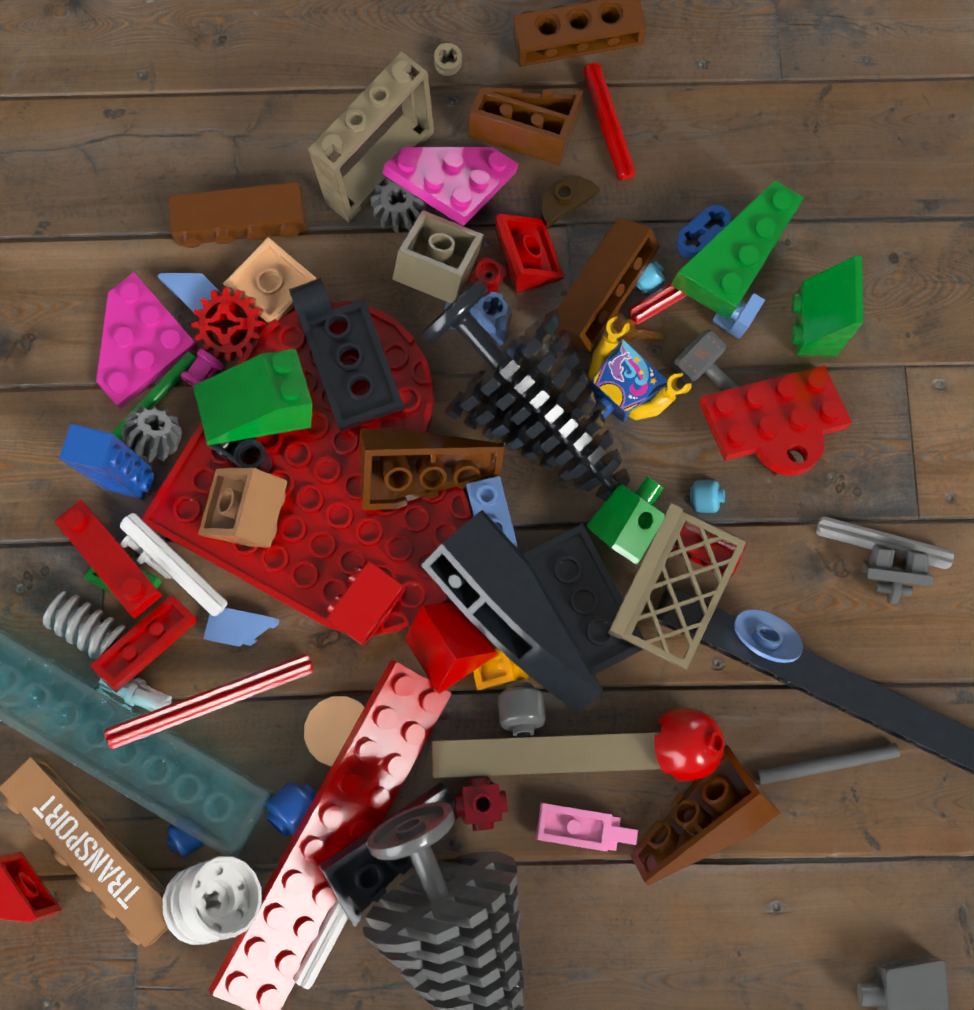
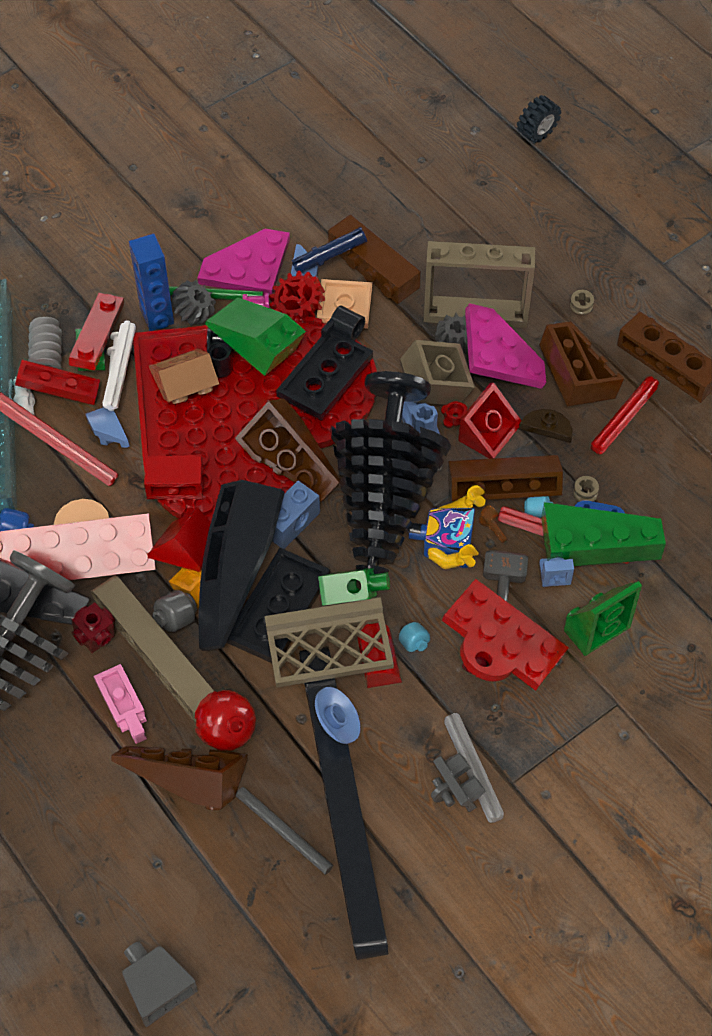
camera: 50 degrees right, 20 degrees down
(201, 250) = (329, 250): none -> dark blue pin
(668, 211) = (582, 482): none -> dark tan bush

